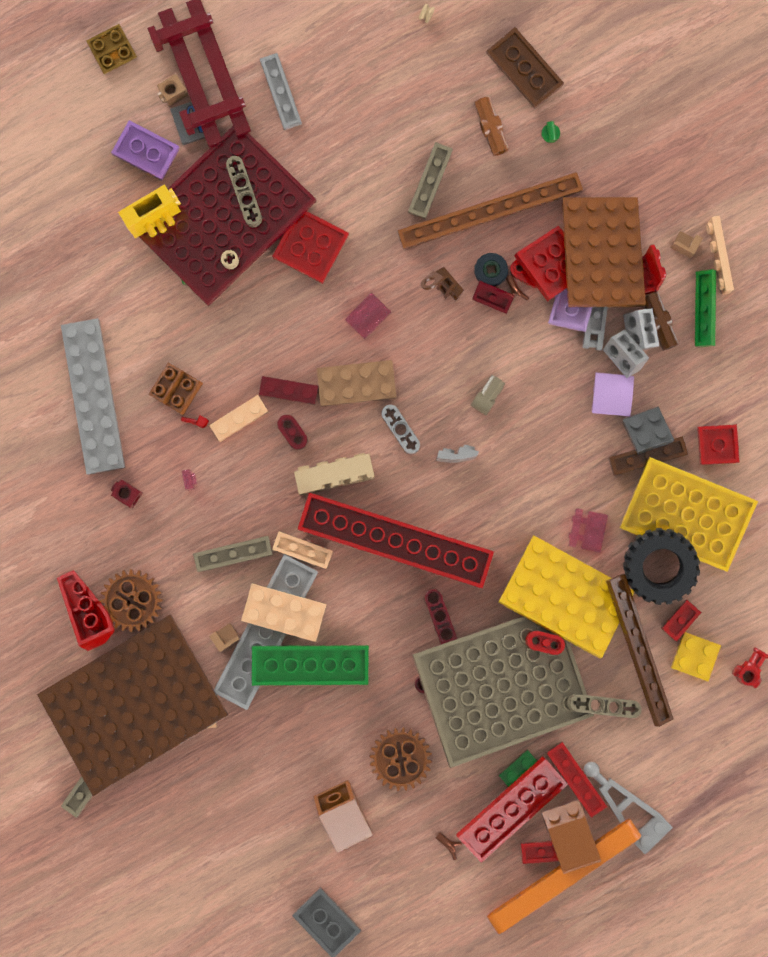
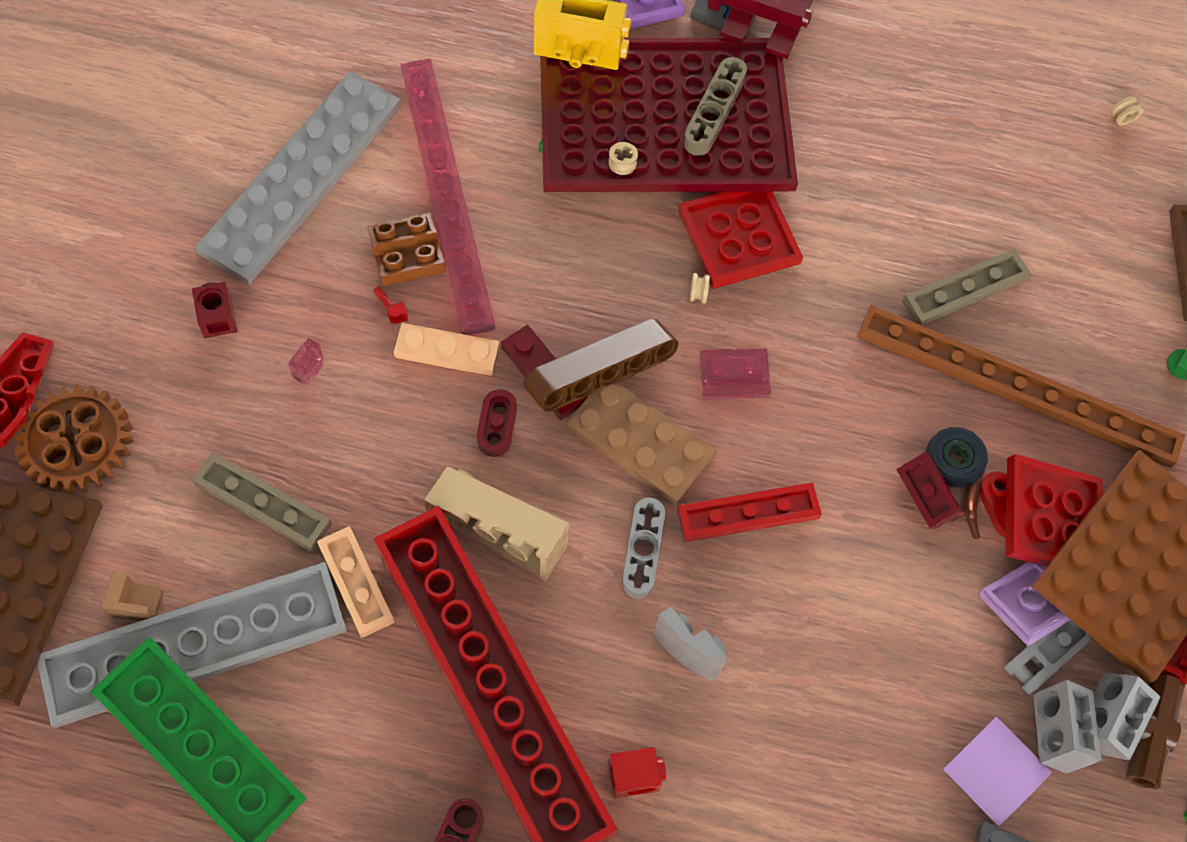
camera: 40 degrees right, 20 degrees down
(165, 345) = (447, 198): none -> clear pink plate
(280, 91) = (862, 55): light grey tile -> none
(283, 612) = (242, 638): light nougat plate -> none
(312, 367) = (600, 365): none -> beam
(318, 290) = (699, 288): none -> tan bush
(429, 375) = (748, 512): none -> red plate
(443, 278) = (880, 415): reddish brown piece -> none
(479, 521) = (636, 772): none -> red brick
(486, 398) = (800, 611): dark tan piece -> none
(491, 126) = (1106, 291): dark orange piece -> none

